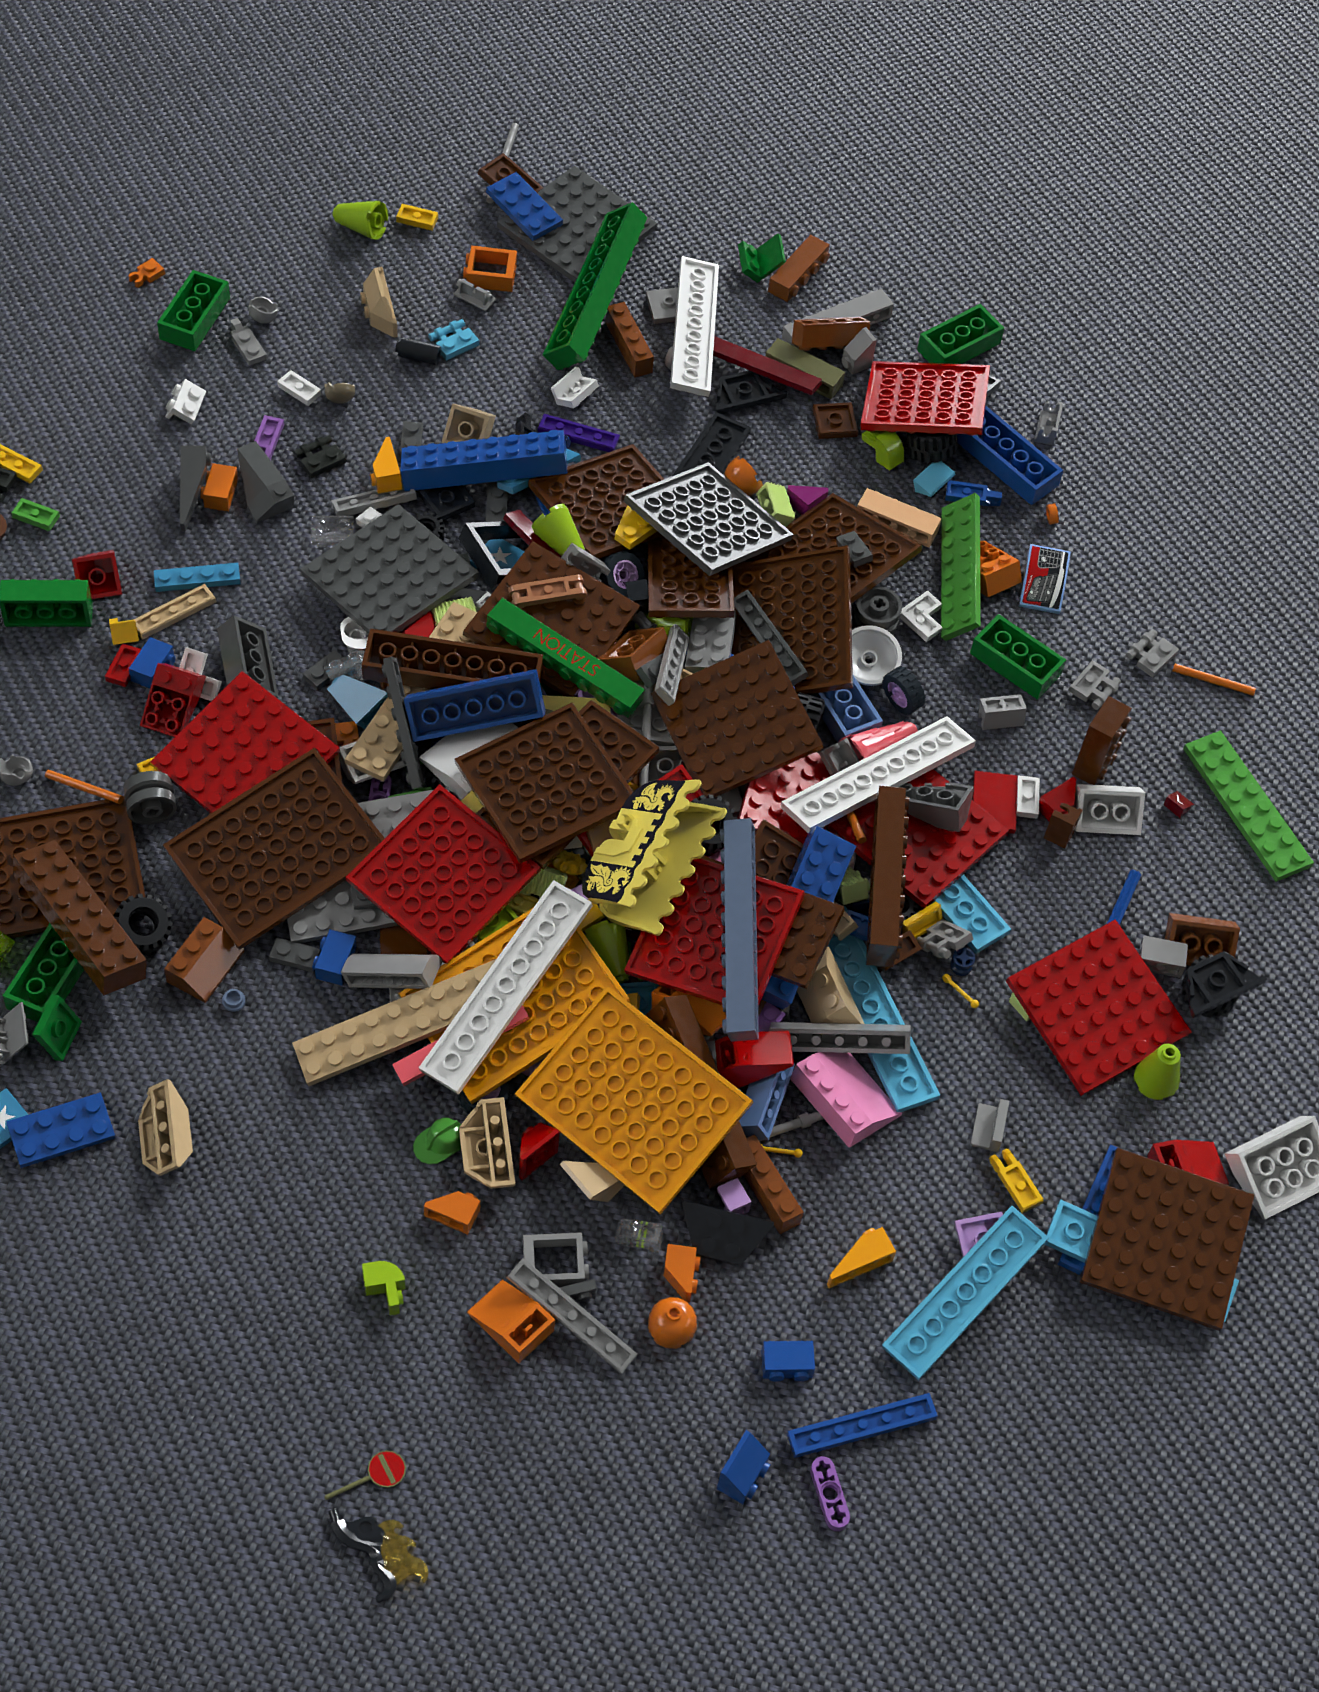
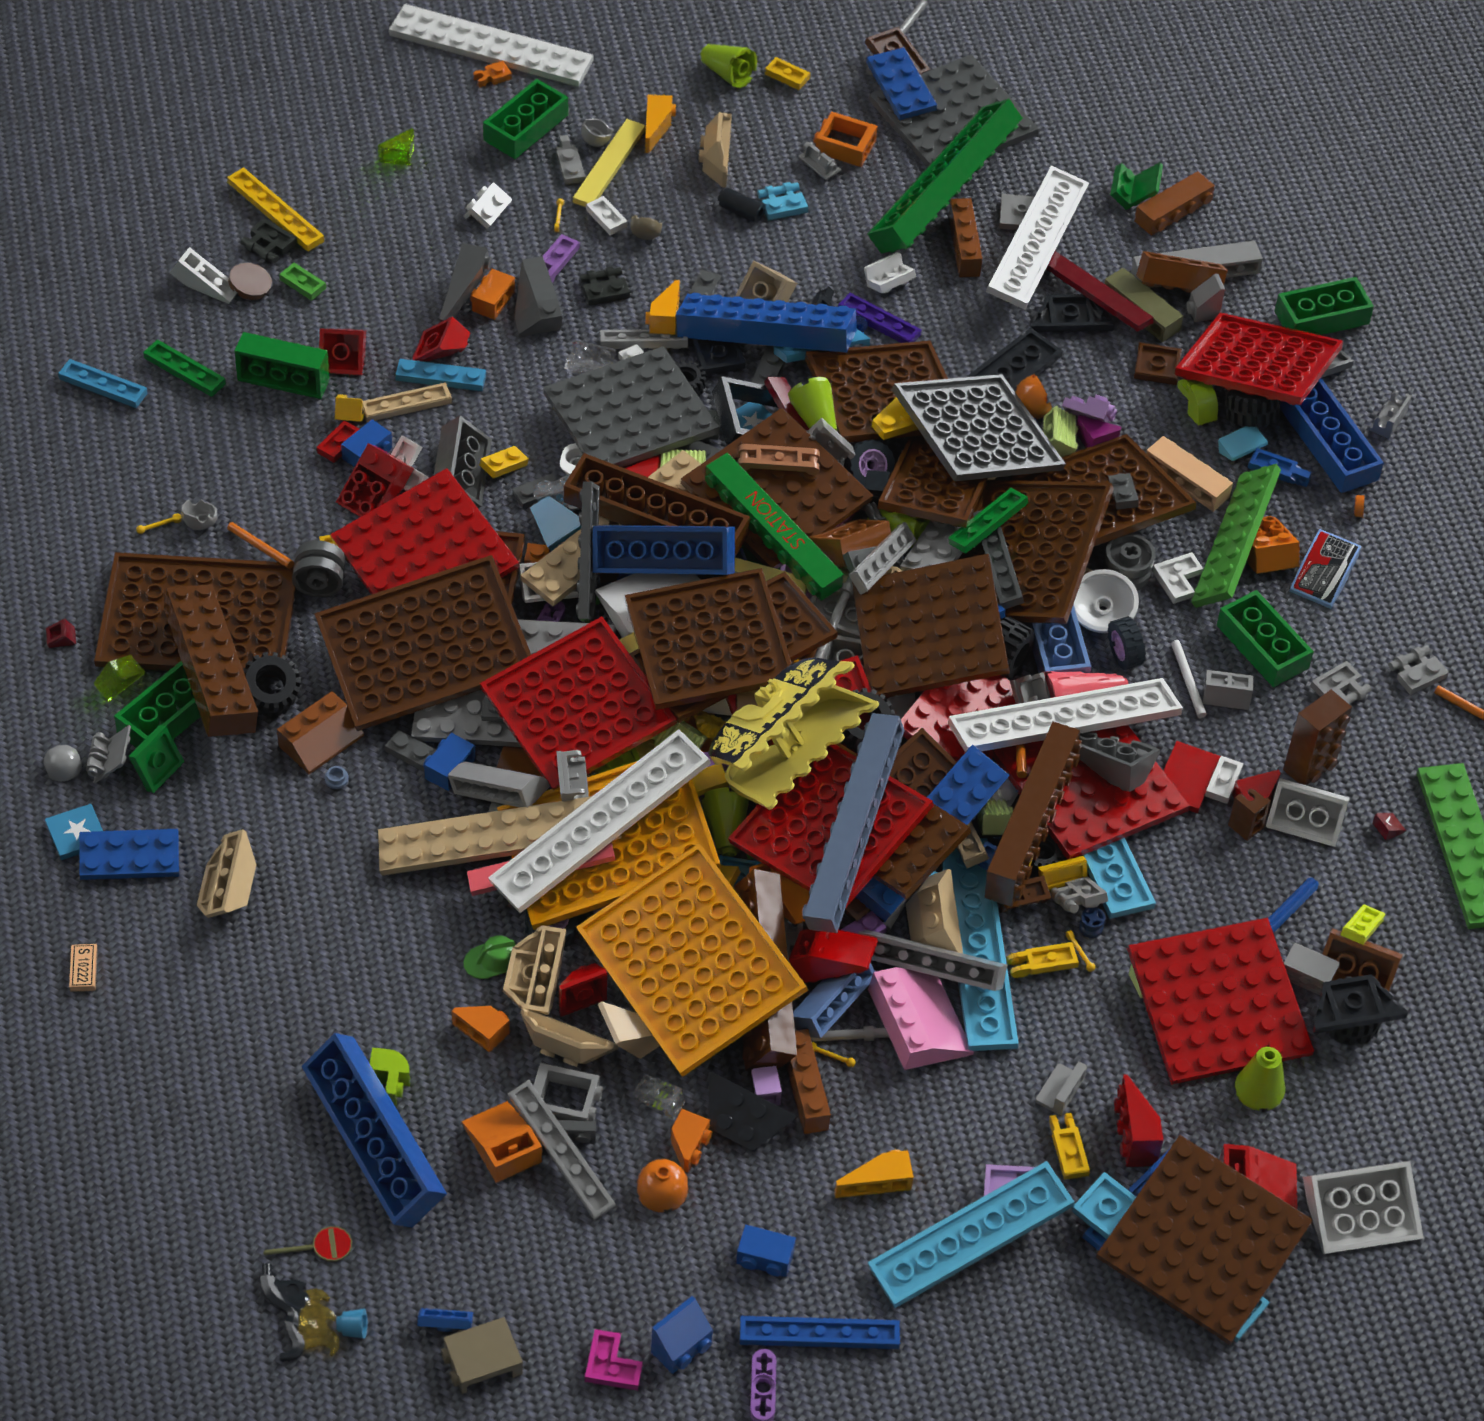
camera: 20 degrees right, 5 degrees down
(53, 1257) = (83, 967): none -> light nougat tile
(82, 365) = (398, 149): none -> clear neon green slope
(134, 245) = (491, 45): none -> white plate
(187, 544) = (442, 340): none -> red slope
(251, 384) = (560, 202): none -> yellow hinge
(283, 336) = (609, 162): none -> light yellow tile
(285, 649) = (504, 462): none -> yellow plate
(314, 283) = (658, 118): none -> light orange slope
(392, 1347) = (374, 1130): none -> blue brick
(434, 1545) = (353, 1323): none -> dark azure hat
(463, 947) = (572, 775): none -> light grey hinge
(519, 1515) = (445, 1319): none -> blue plate
(538, 1204) = (565, 1040): none -> tan wedge
(566, 1541) = (481, 1354): none -> dark tan panel
(681, 1517) = (606, 1367): none -> dark pink plate
(750, 605) = (988, 520): none -> green plate
(801, 476) = (1095, 408): none -> lavender plate
(934, 1007) = (1043, 959): none -> yellow hinge
(963, 709) = (1188, 678): none -> white bar
(1071, 1145) = (1138, 1126): none -> red slope
(1194, 903) = (1363, 924): none -> neon yellow tile

